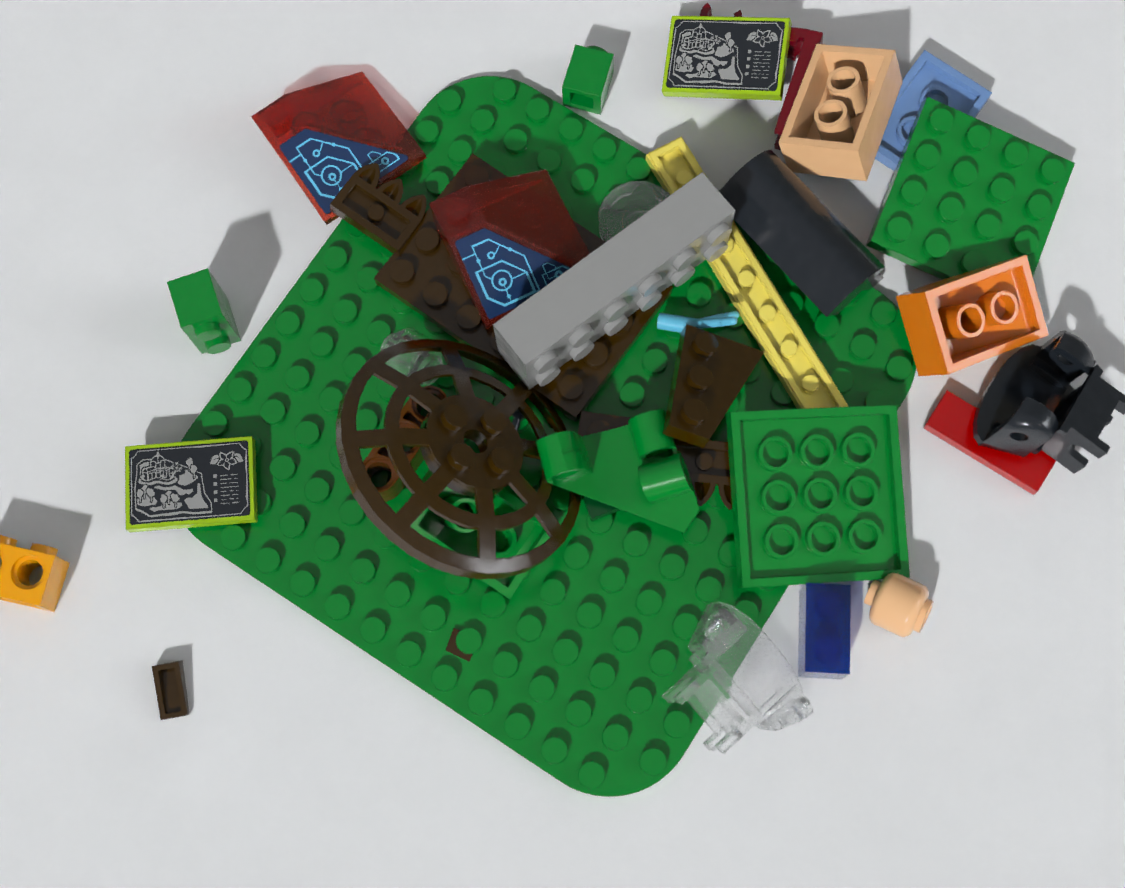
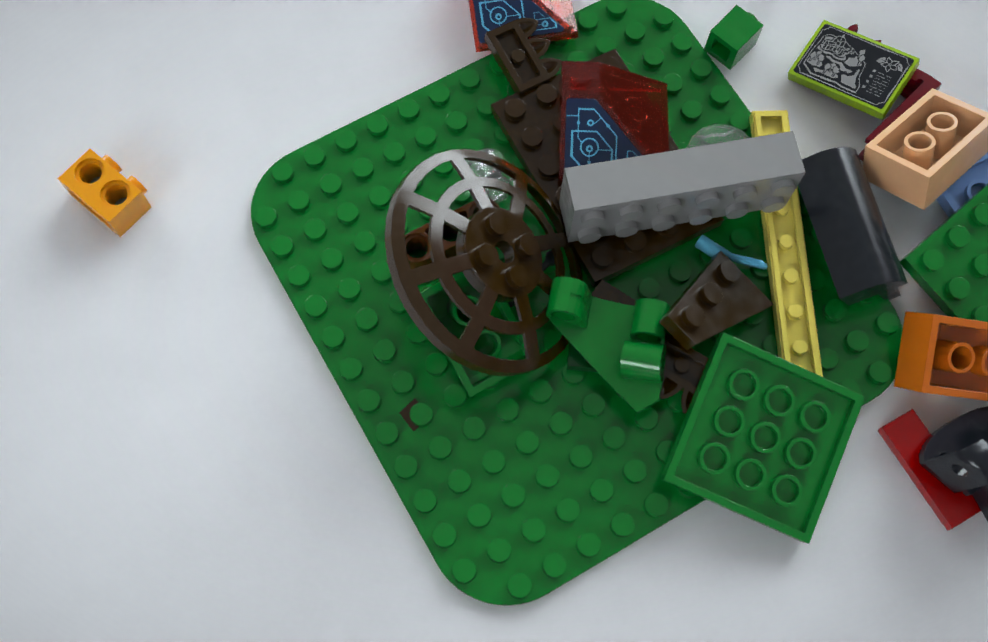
camera: 20 degrees right, 5 degrees down
(171, 690) = (173, 337): dark brown piece -> none
(190, 484) = (271, 190): tile -> none
(204, 312) = (349, 67): green brick -> none
(738, 679) = (624, 552): clear piece -> none
(824, 631) = (715, 551): clear blue brick -> none
(898, 604) = (789, 561): light nougat head -> none

